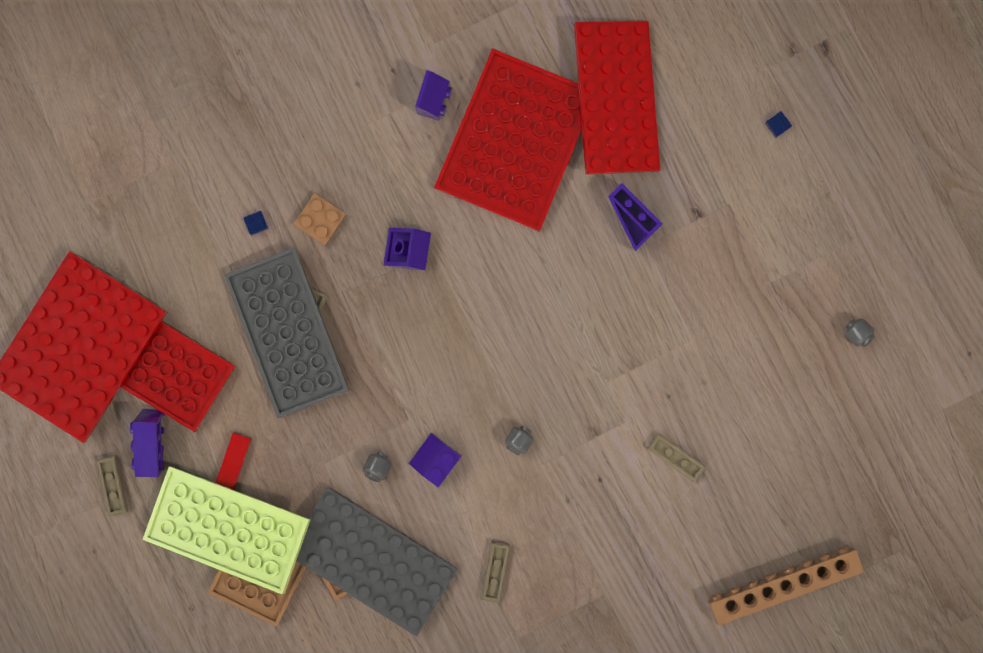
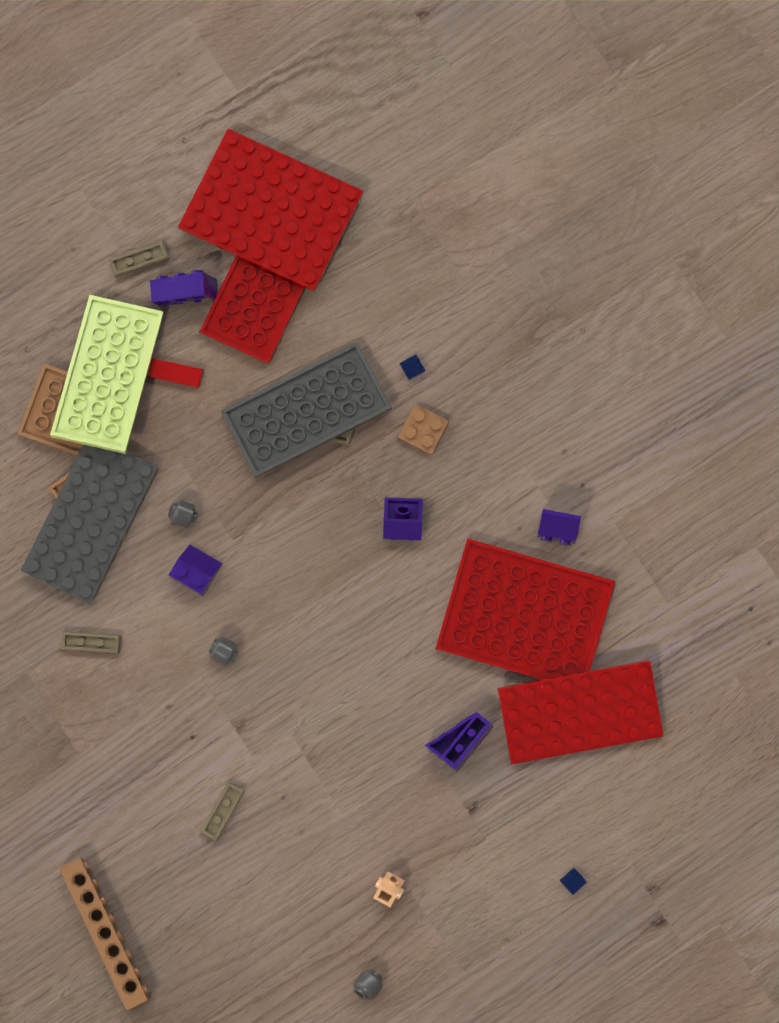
camera: 85 degrees right, 5 degrees down
(770, 302) = (388, 889): none -> light nougat brick

